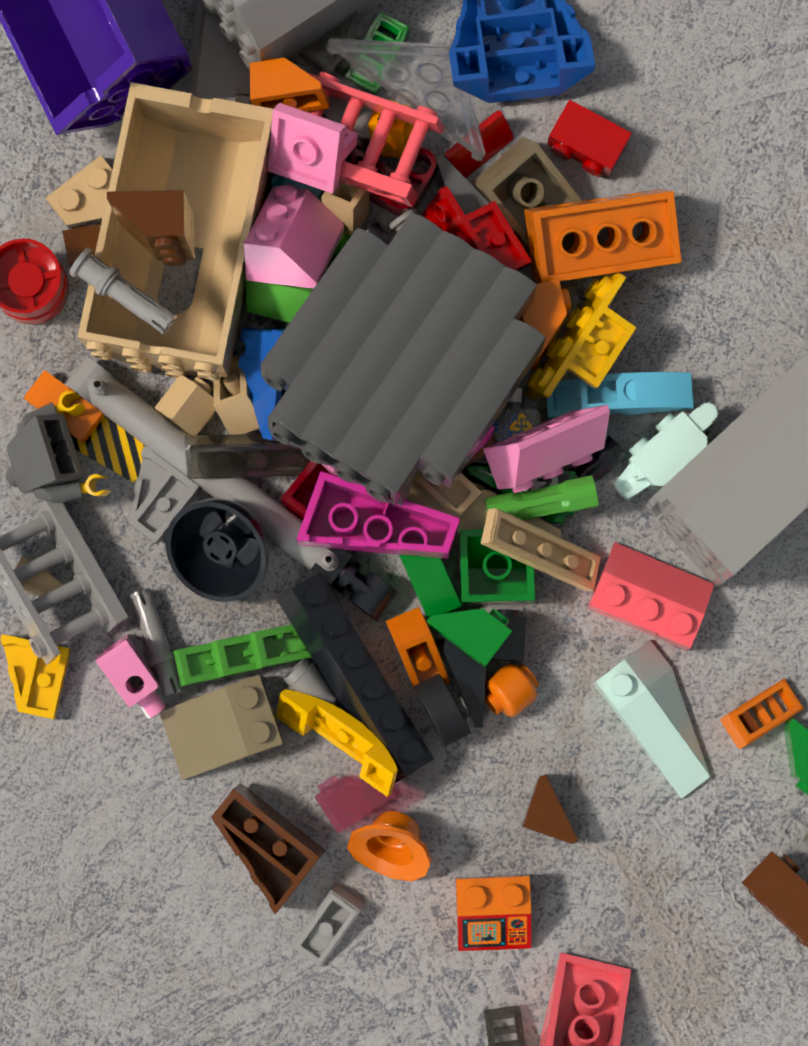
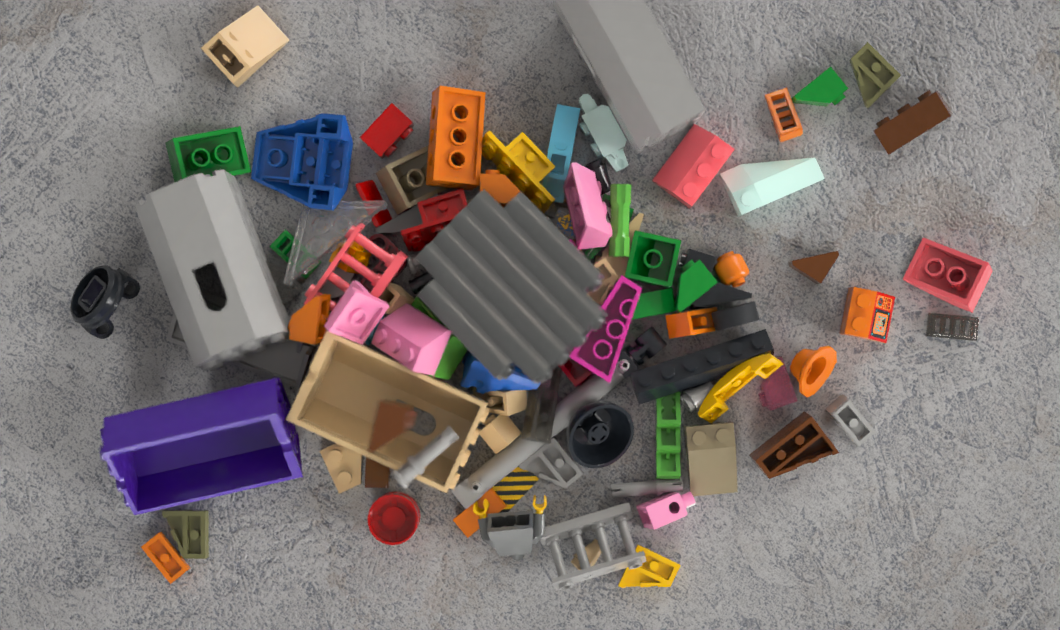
camera: 85 degrees left, 5 degrees up
(540, 549) = (650, 228): tan tile -> none

